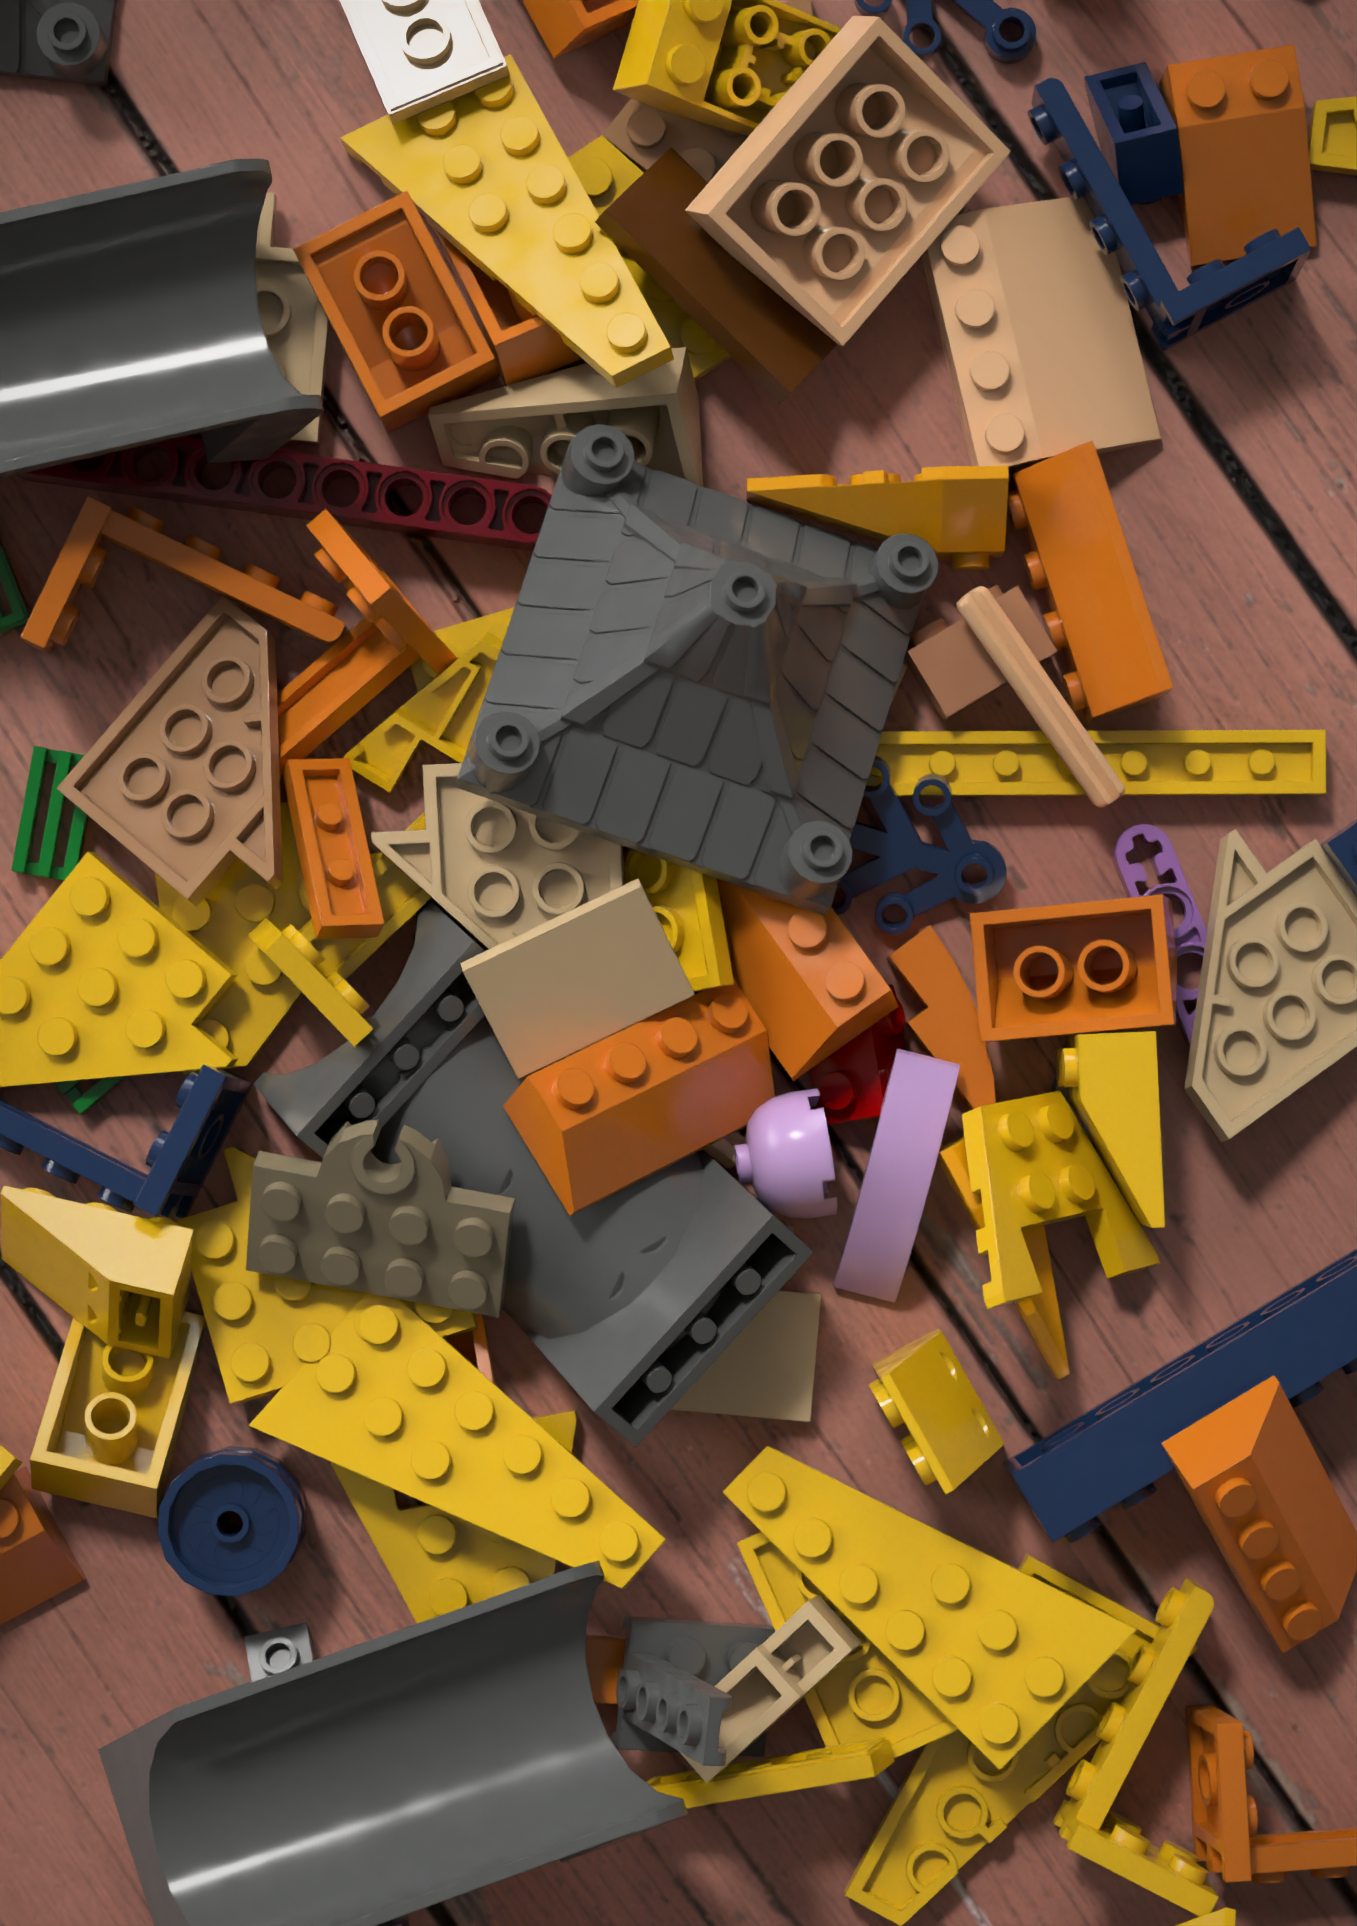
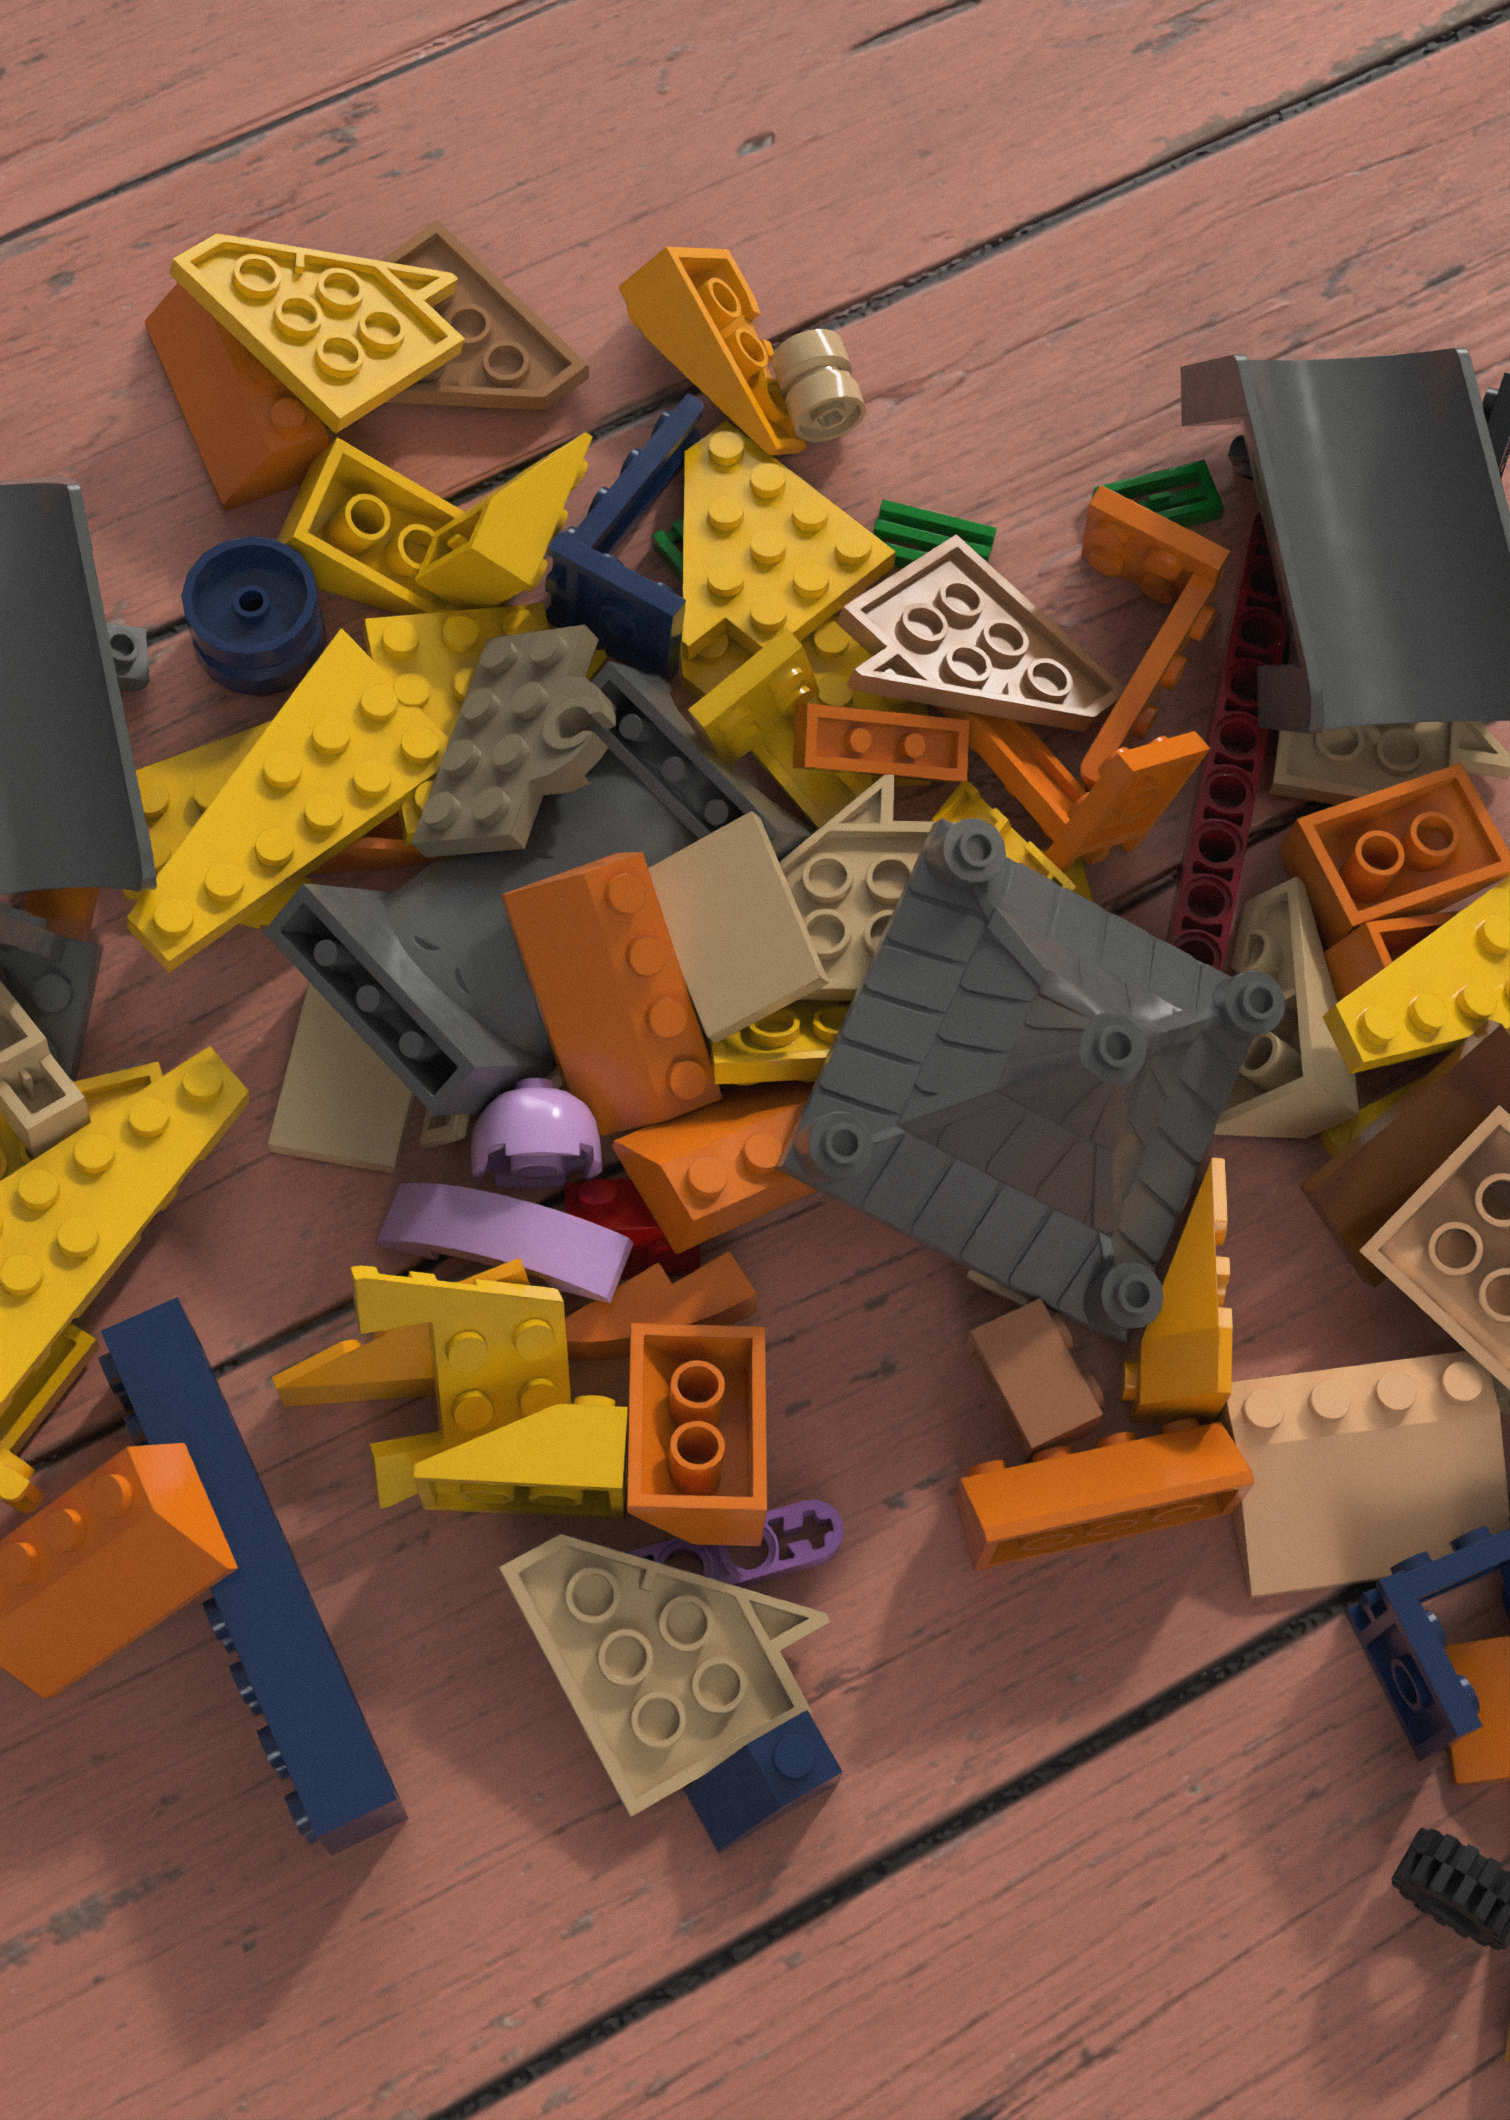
camera: 90 degrees right, 20 degrees down
(902, 849) = (836, 1286): dark blue plant -> none
(940, 1408) = (256, 1242): yellow slope -> none
(1040, 696) = (984, 1422): light nougat axle -> none
(1142, 759) = (910, 1493): yellow plate -> none

